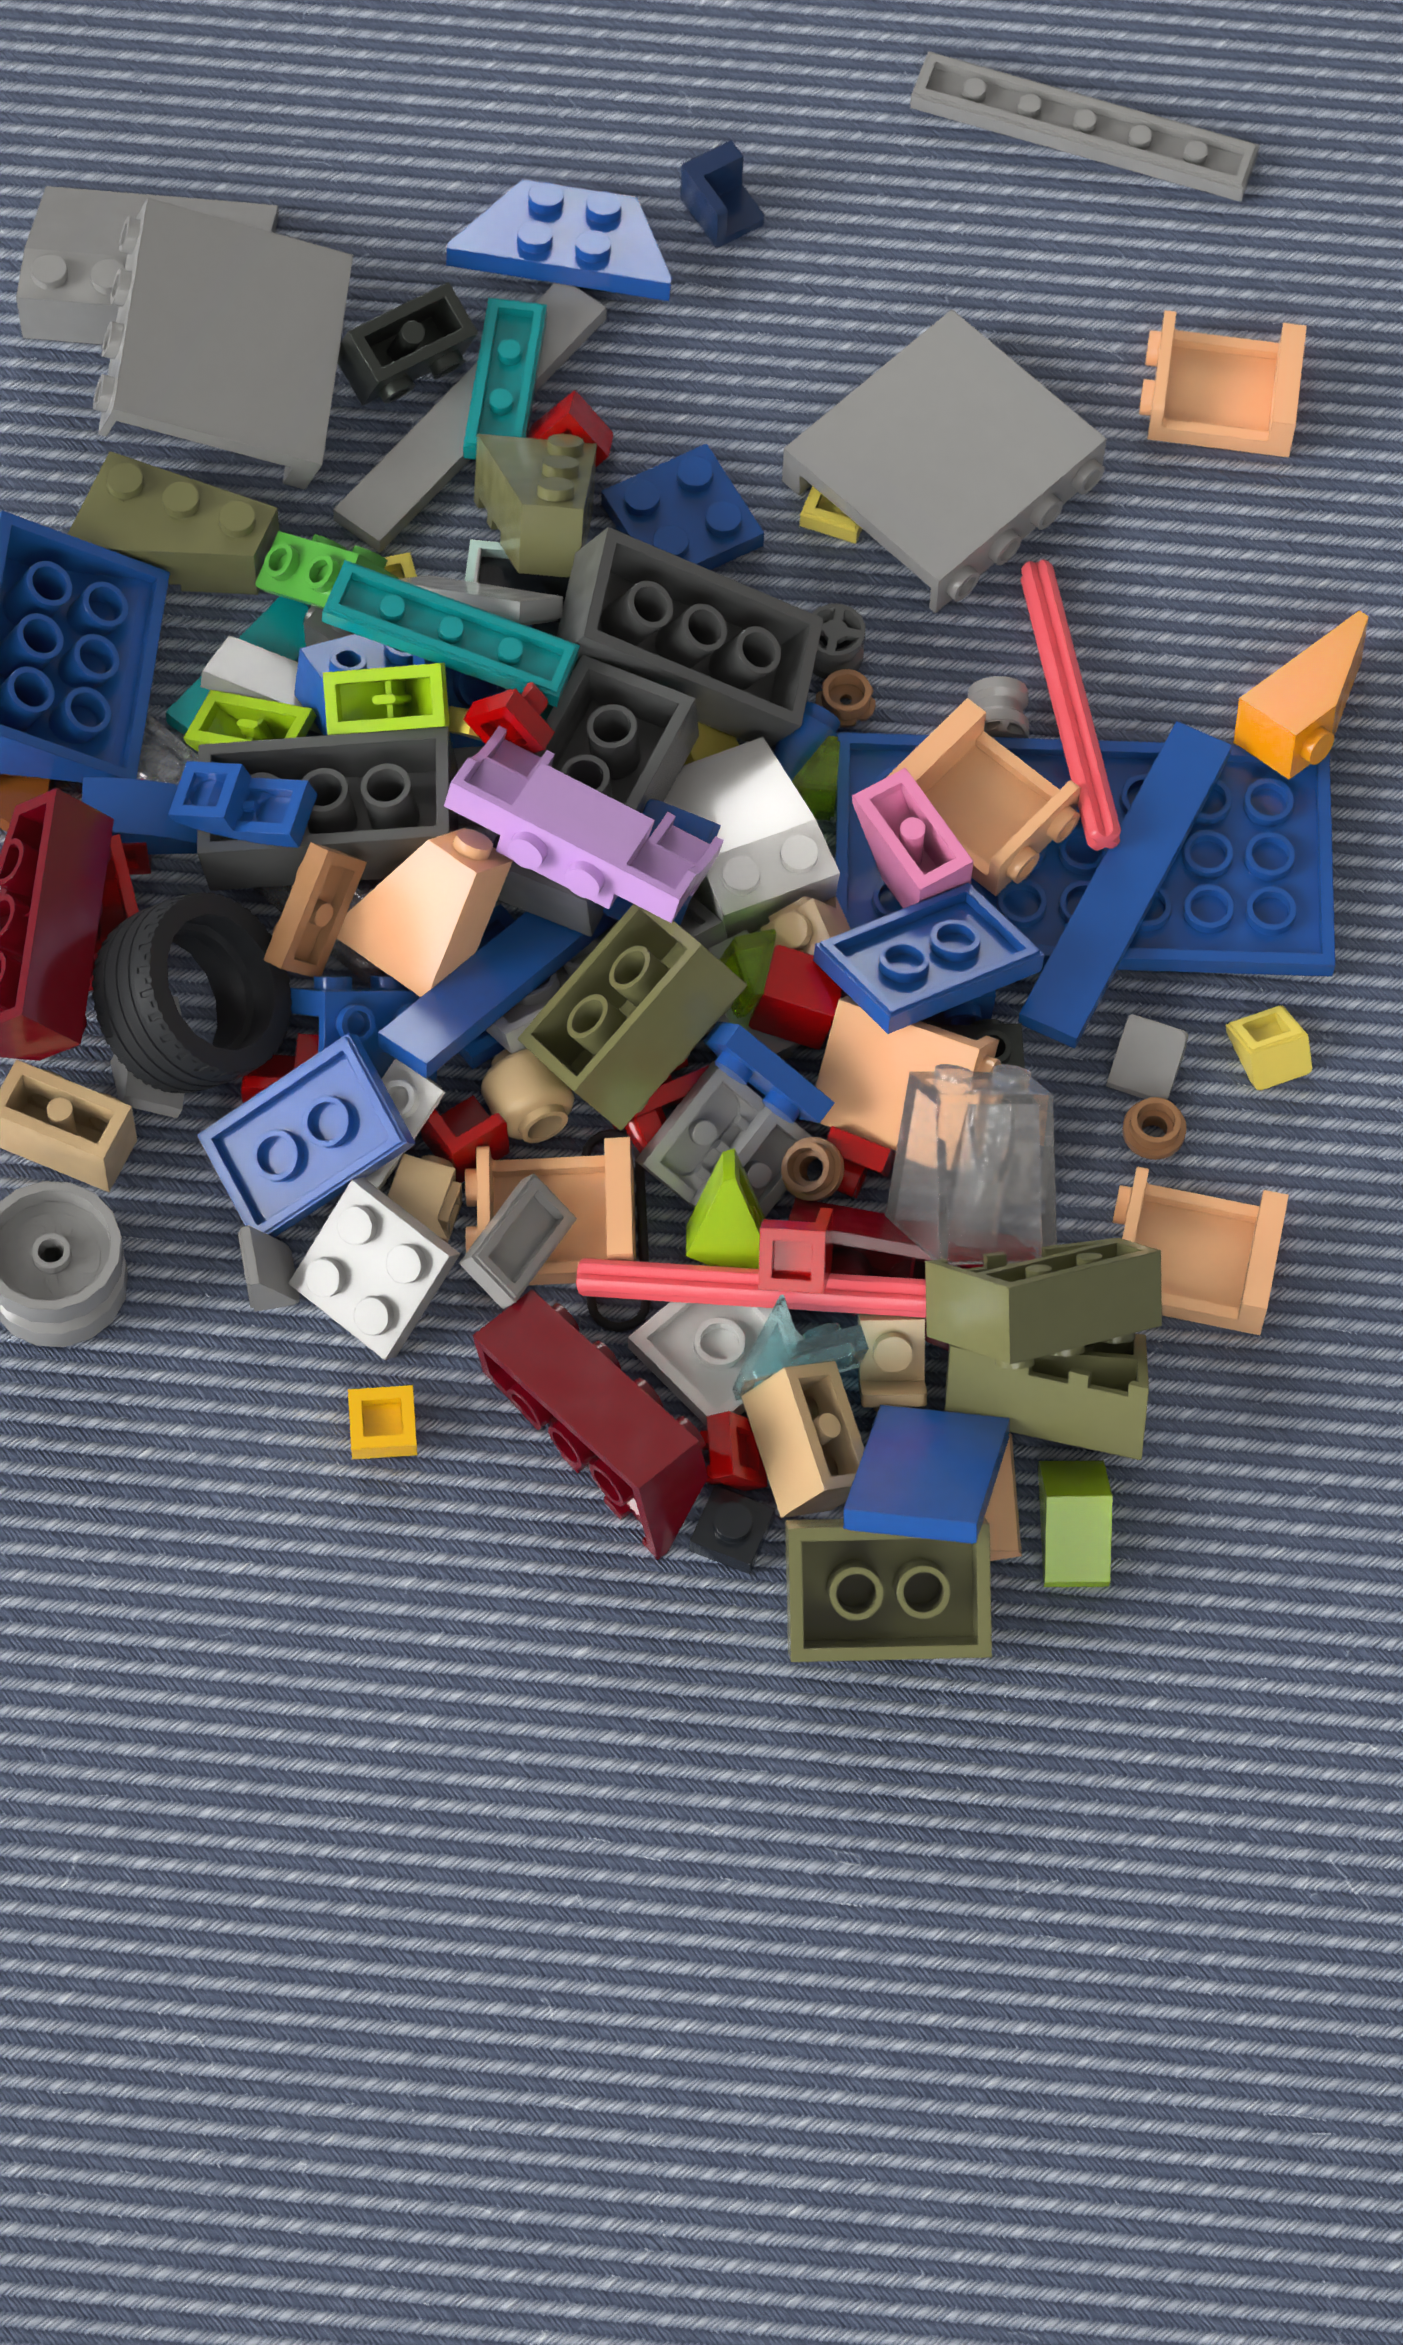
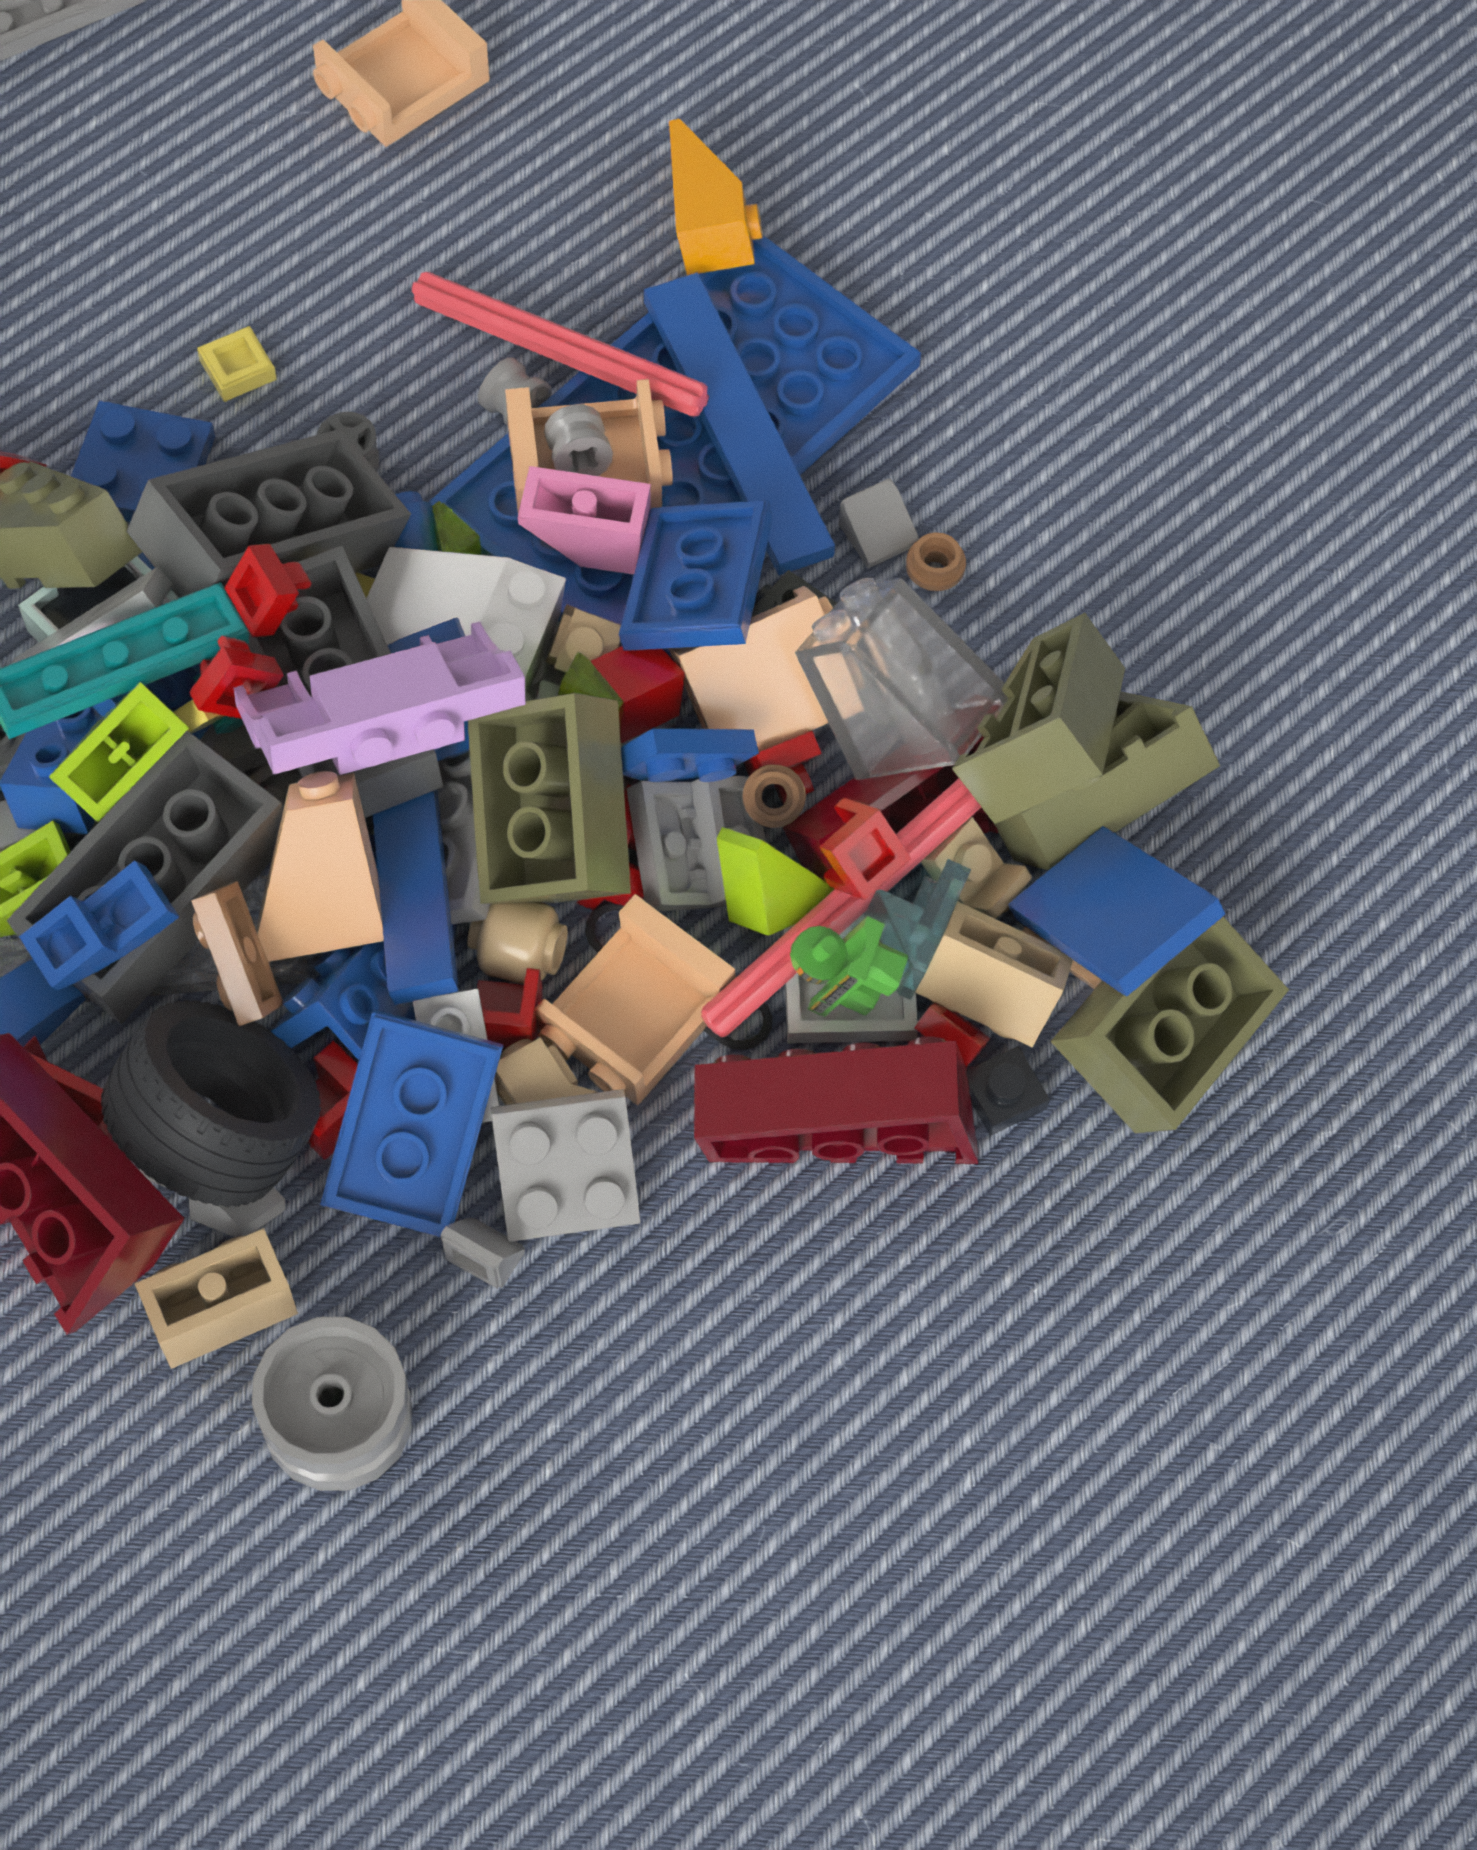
camera: 50 degrees left, 0 degrees up
(382, 1422) = (694, 1266): yellow plate -> none
(518, 1241) = (644, 1042): light grey tile -> none
(597, 679) = (265, 589): none -> red tile
(696, 1323) = (850, 967): none -> bright green hips
(849, 685) = (403, 467): medium nougat plate -> none
(948, 457) = (278, 261): light grey panel -> none
(976, 786) = (578, 440): none -> light grey wheel
(1075, 1523) = (1206, 849): lime slope -> none
(1213, 1250) = (1070, 581): light nougat panel -> none
(1271, 1047) = (937, 444): light yellow slope -> none

